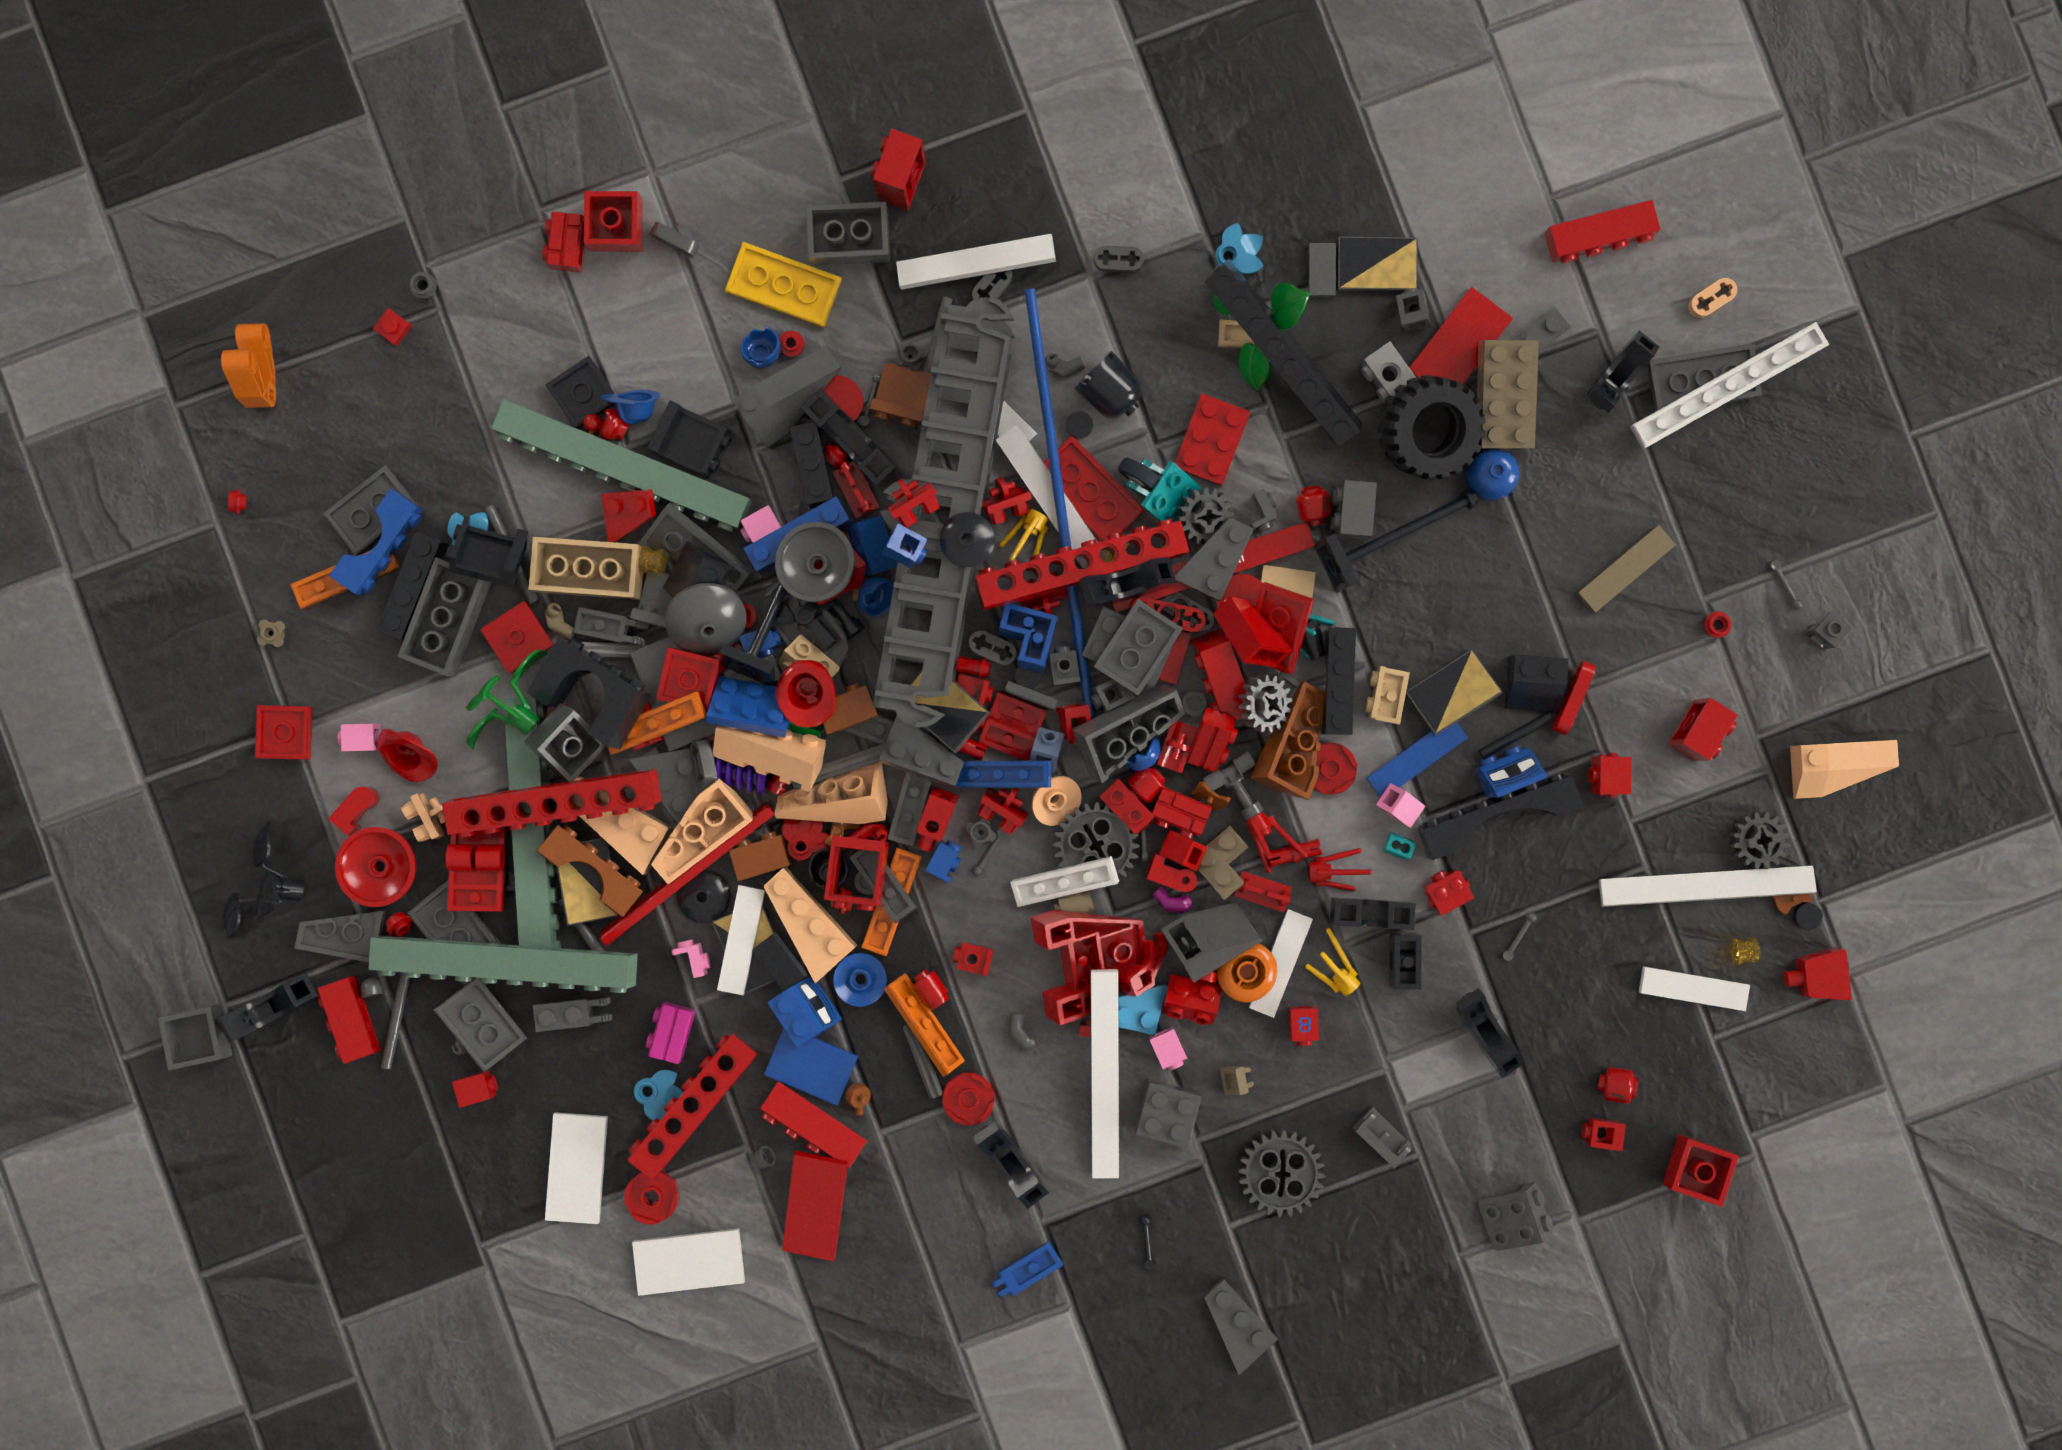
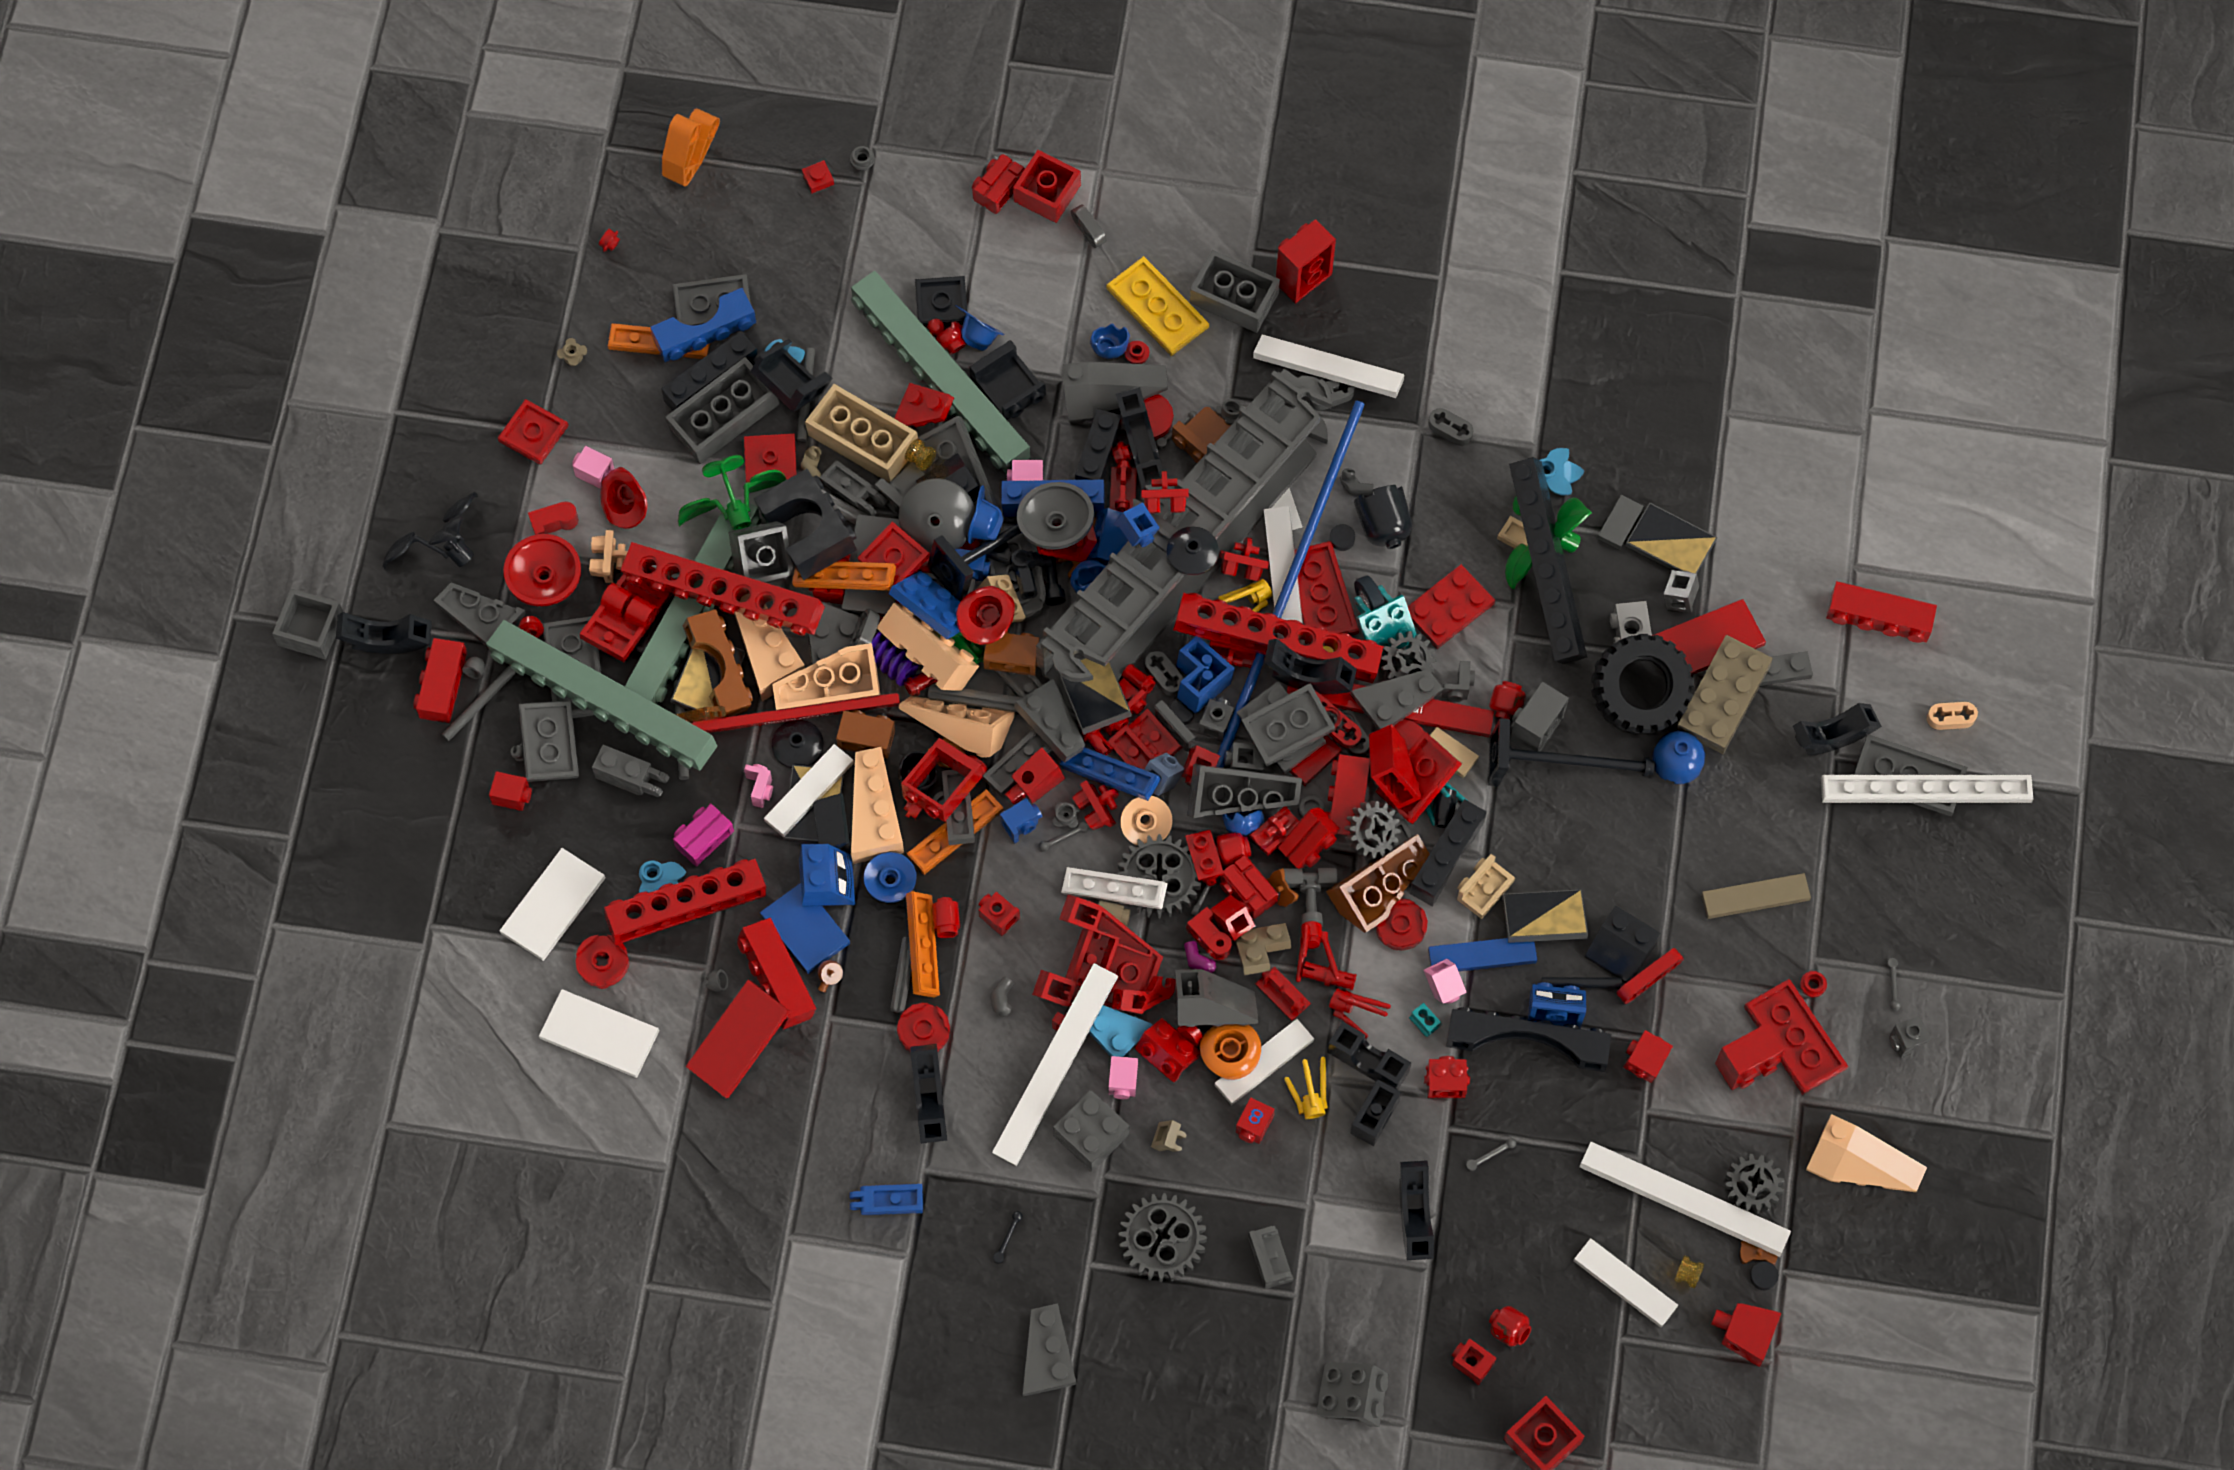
camera: 30 degrees right, 20 degrees down
(602, 929) = (704, 713): none -> clear orange tile
(753, 596) = (986, 520): none -> blue piece
(804, 832) = (915, 736): red plate -> none
(1720, 675) = (1808, 1051): none -> red tile

